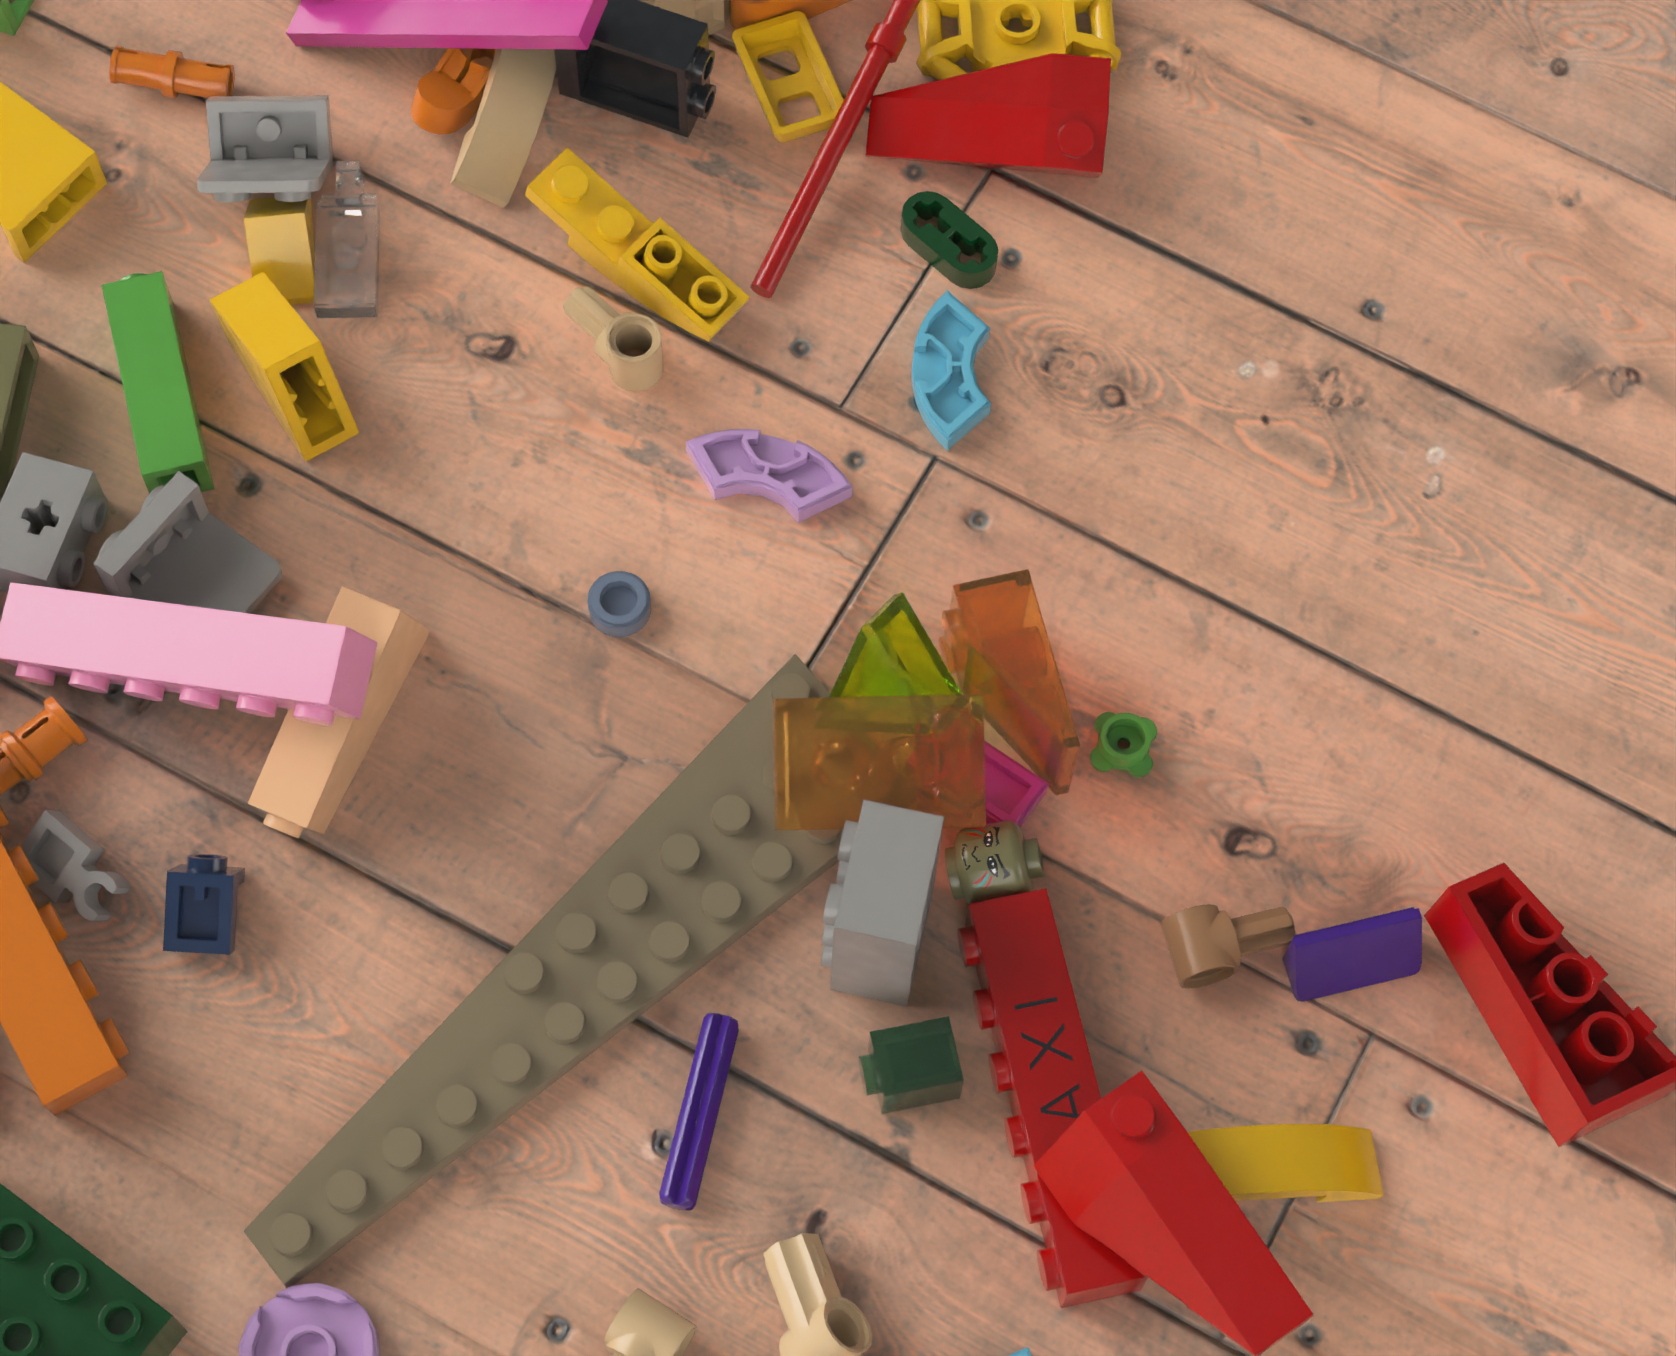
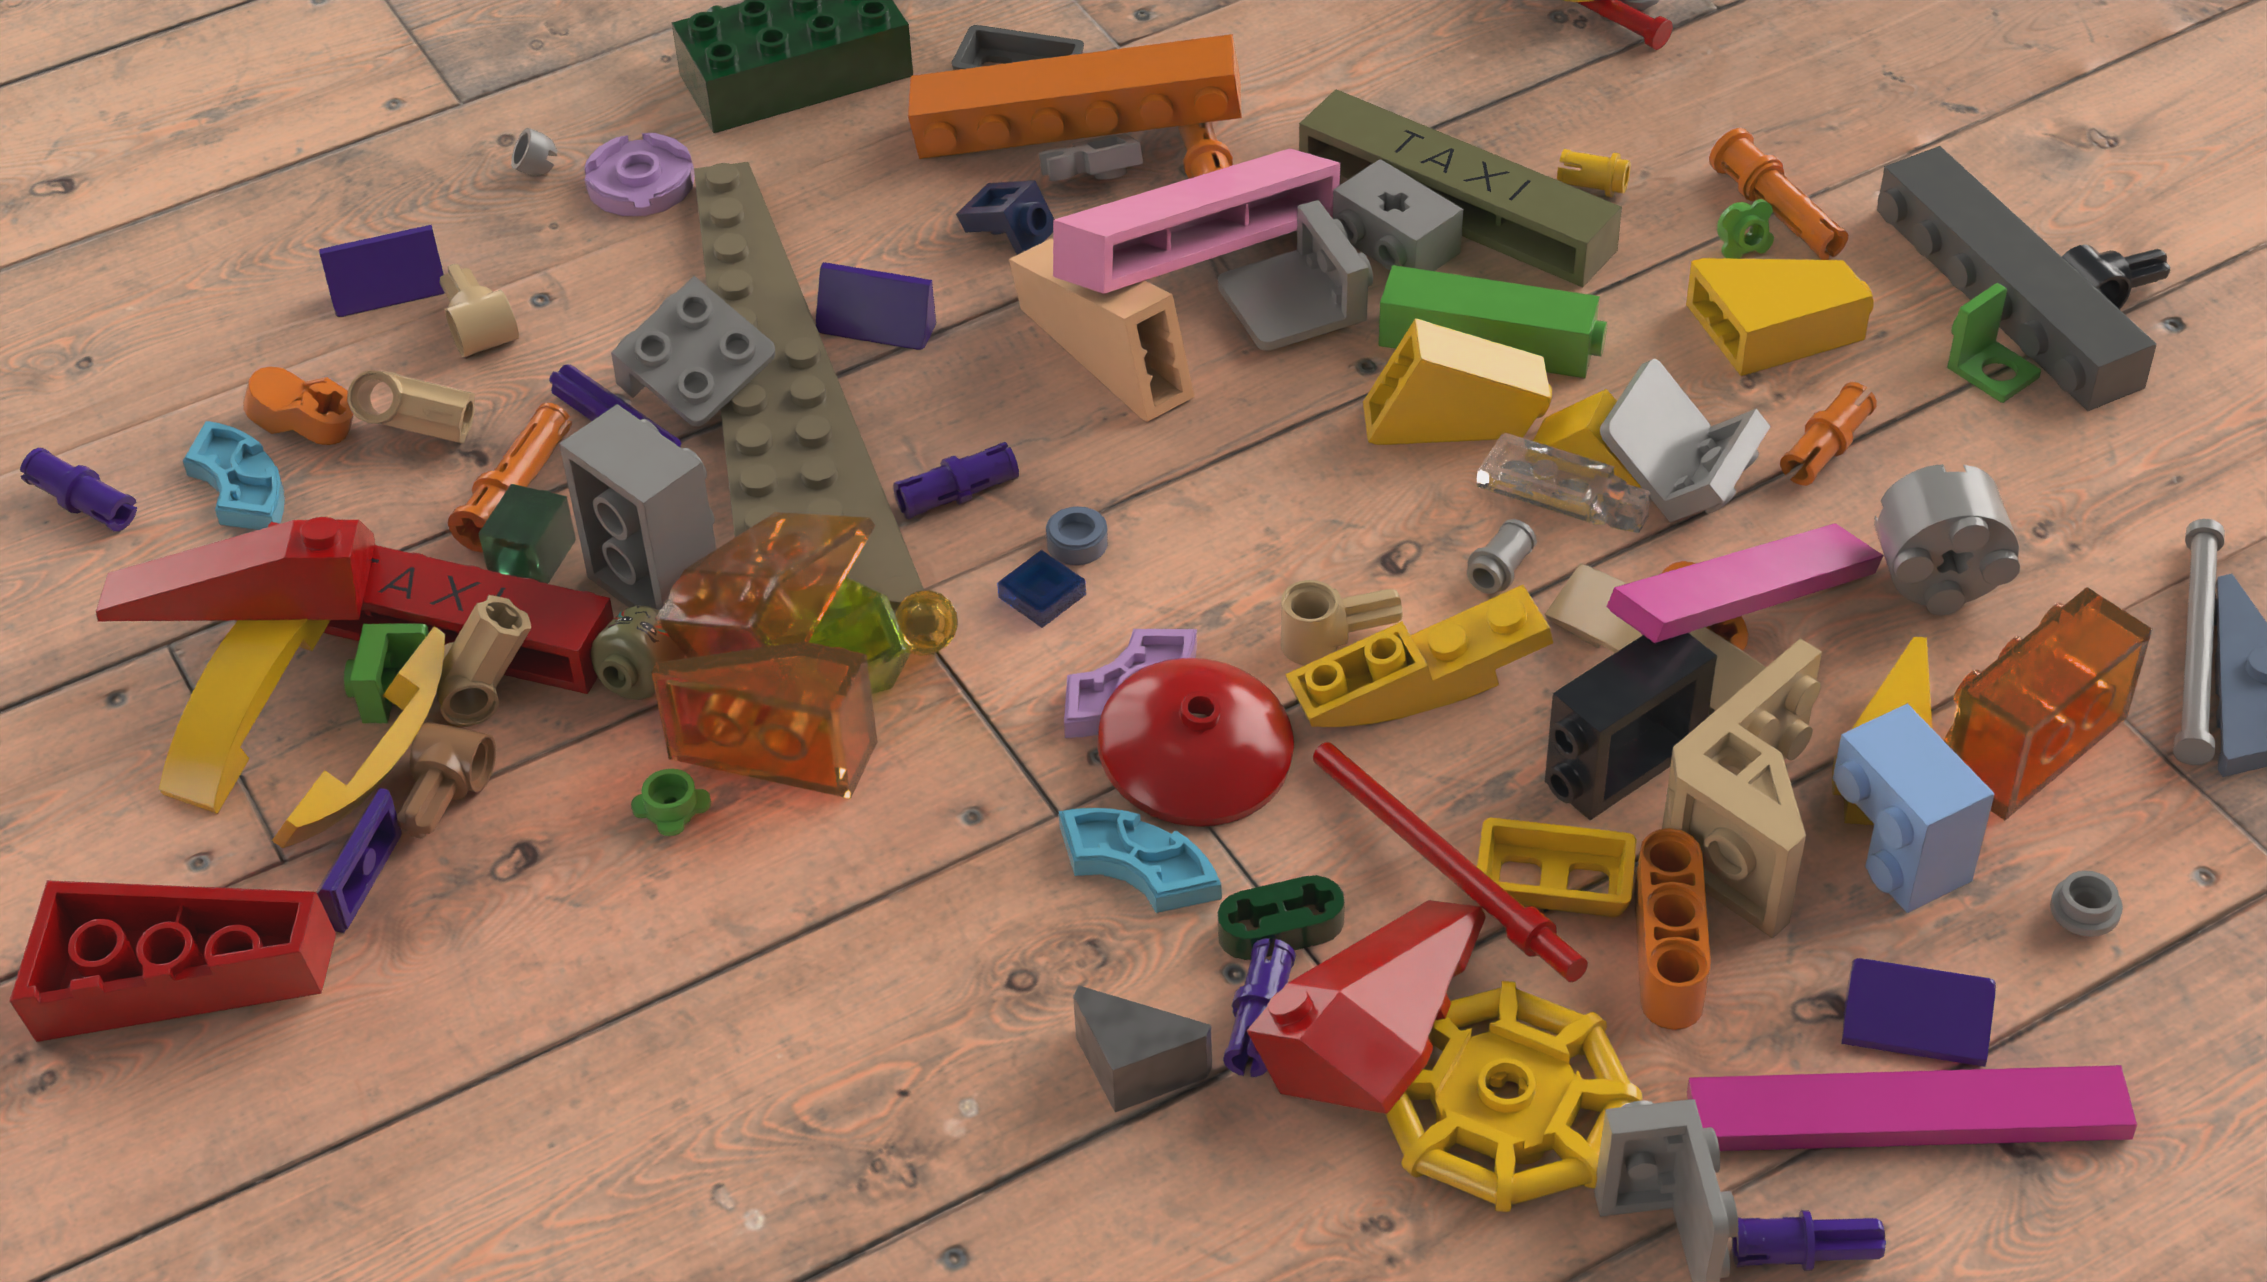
camera: 125 degrees right, 20 degrees down
(417, 950) = (875, 306): none -> slope
(465, 253) = (1493, 566): none -> light grey pin
(603, 1060) = (692, 353): none -> light grey bracket
(612, 737) = (956, 480): none -> dark purple pin
(701, 597) = (1041, 588): none -> clear blue tile
(756, 1163) = (517, 467): none -> orange pin
(808, 403) = (1190, 765): none -> red dish
(820, 642) = (932, 616): none -> clear yellow wheel
(1044, 211) = (1262, 982): none -> dark purple pin
(1107, 982) = (479, 660): none -> tan piece
(1145, 260) = (1139, 1048): none -> flat silver slope
(1168, 1074) = (378, 659): none -> bright green bracket
(1245, 999) = (331, 799): none -> yellow slope

